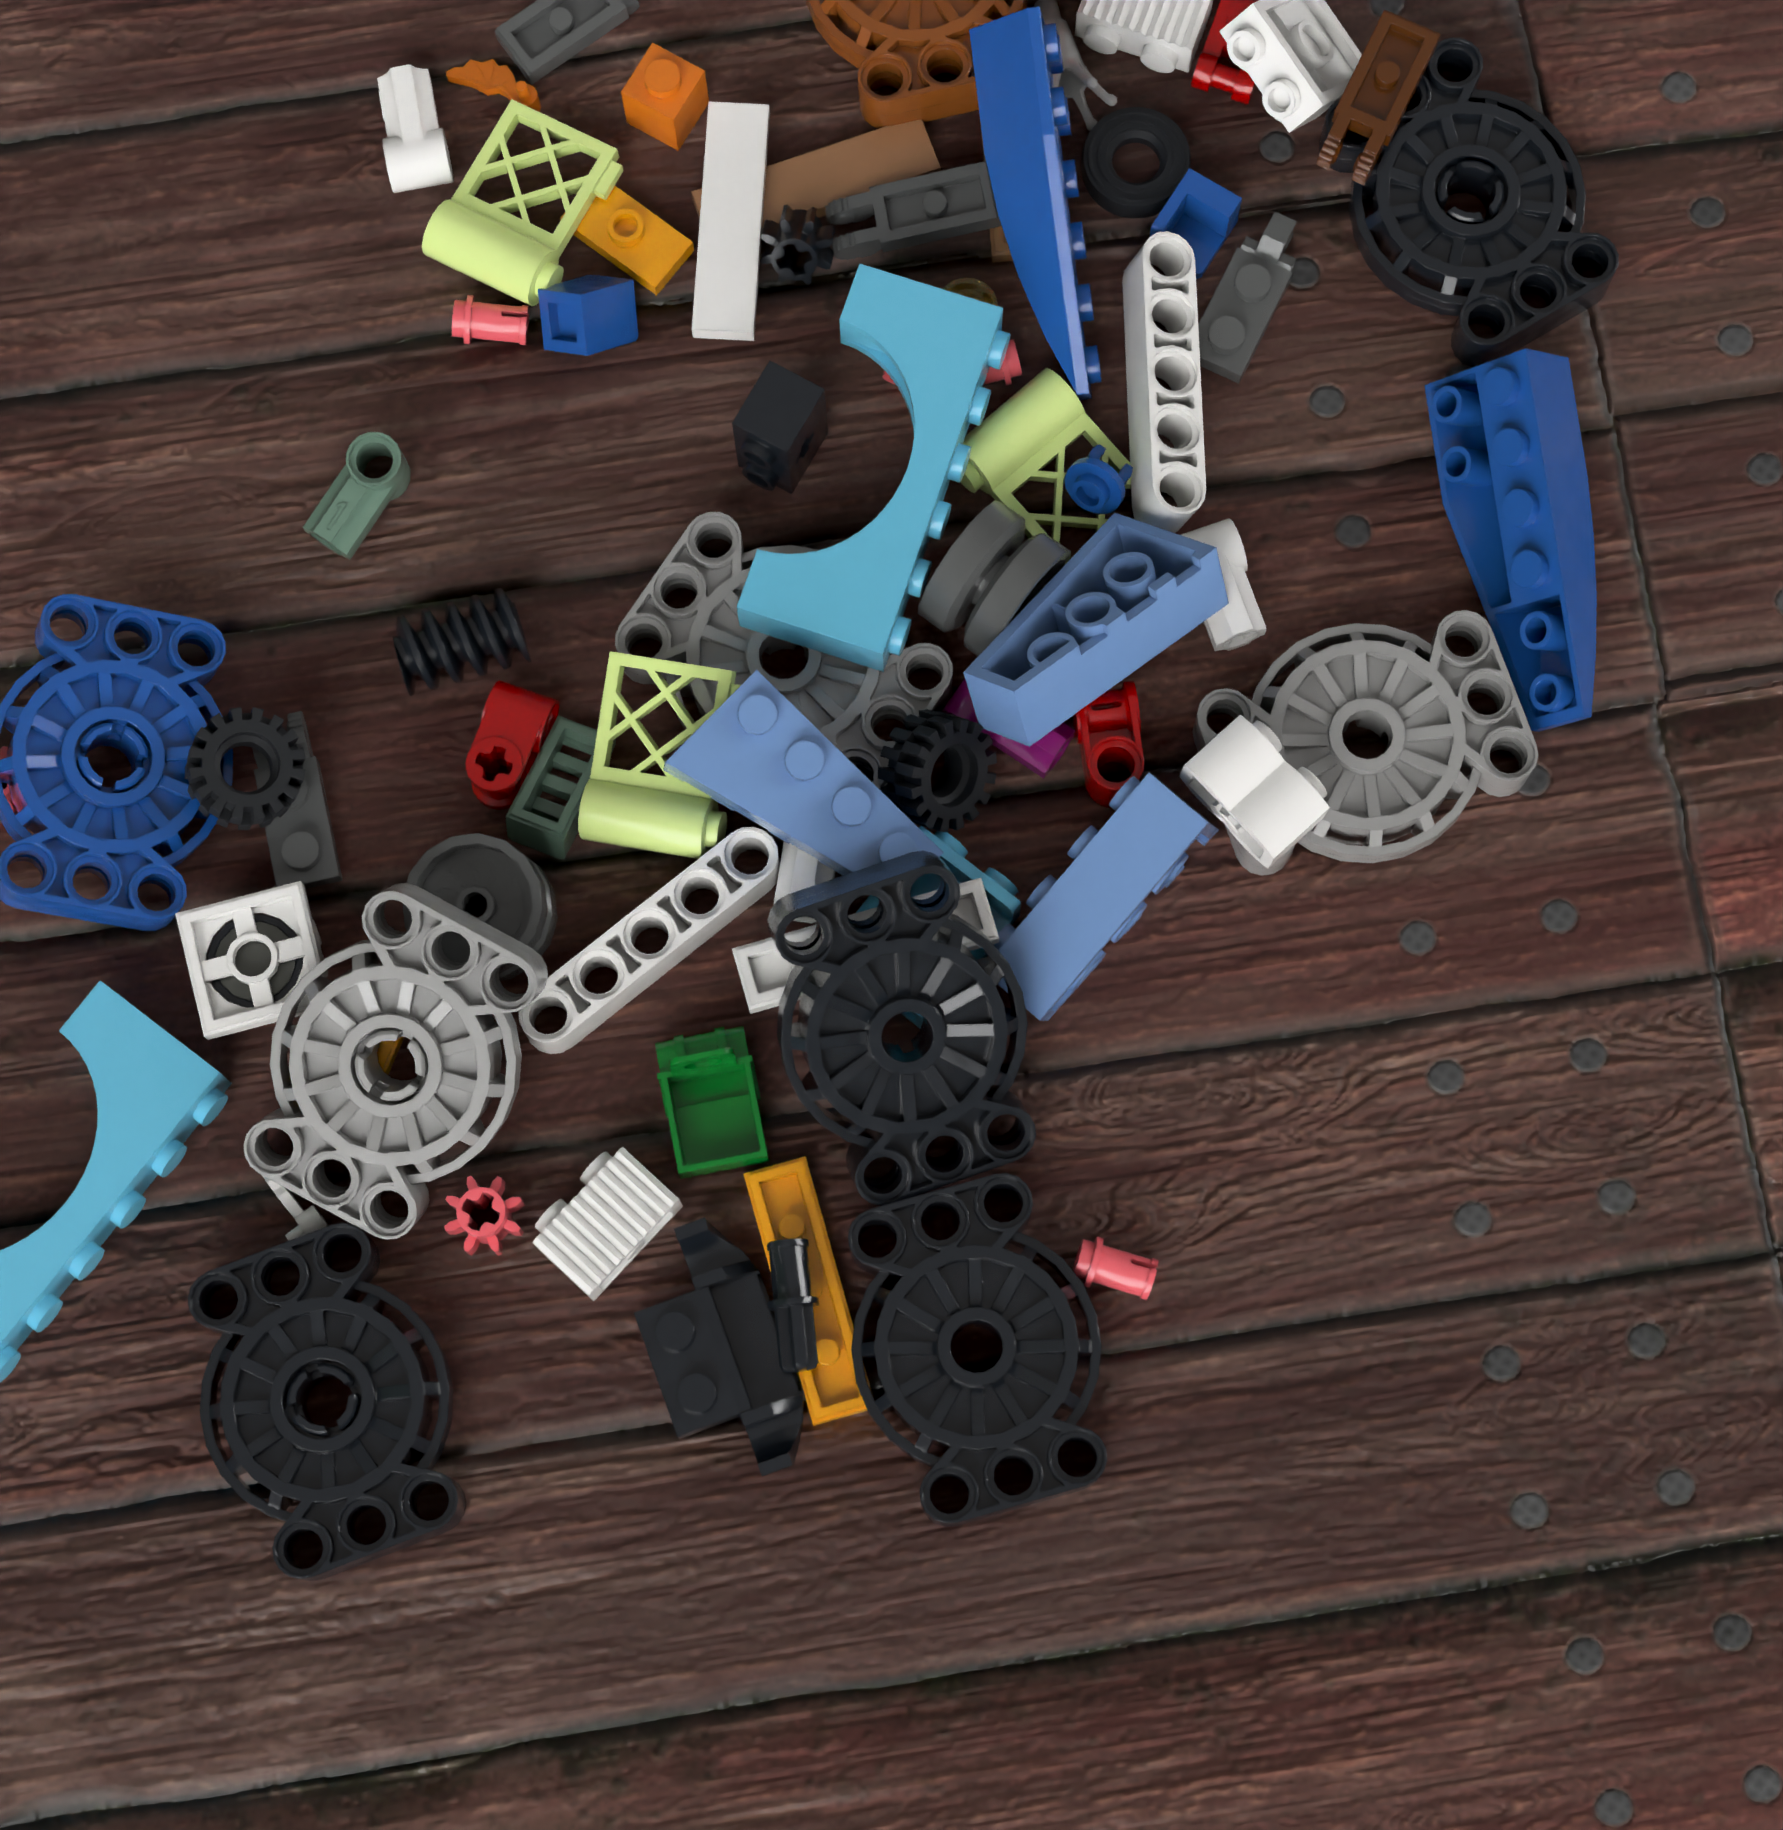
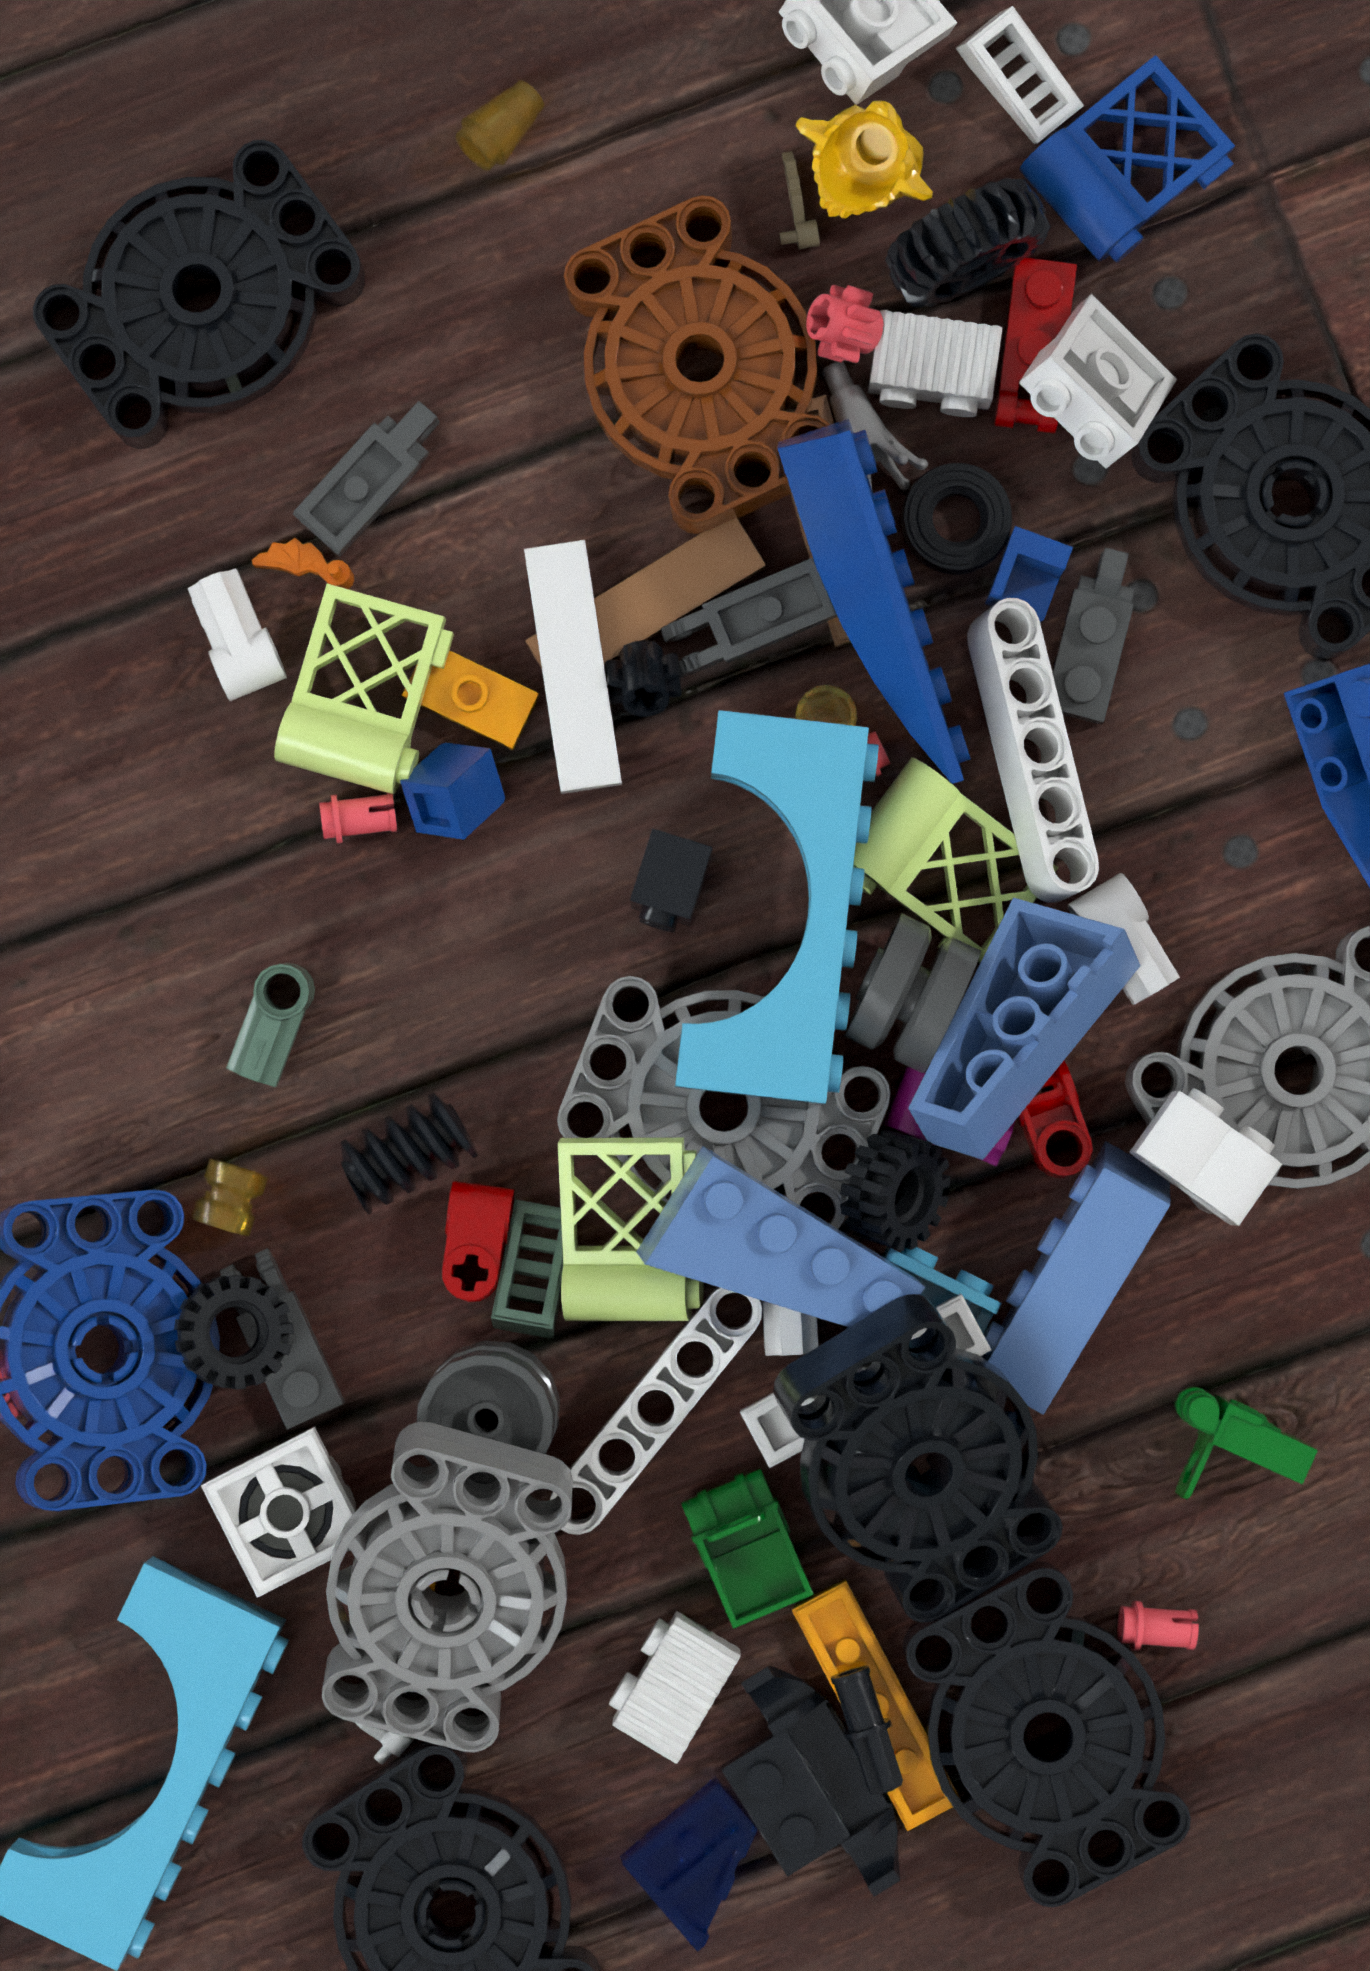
camera: 15 degrees left, 10 degrees up
(274, 655) = (229, 1199): none -> clear yellow wheel
(480, 1198) = (543, 1709): coral gear -> none
(585, 1406) = (693, 1858): none -> clear blue wing
(665, 96) = (478, 549): orange brick -> none
(1096, 484) = (988, 872): blue plate -> none
(1240, 1085) = (1239, 1432): none -> green piece
(1380, 90) = (1189, 412): reddish brown hinge -> none

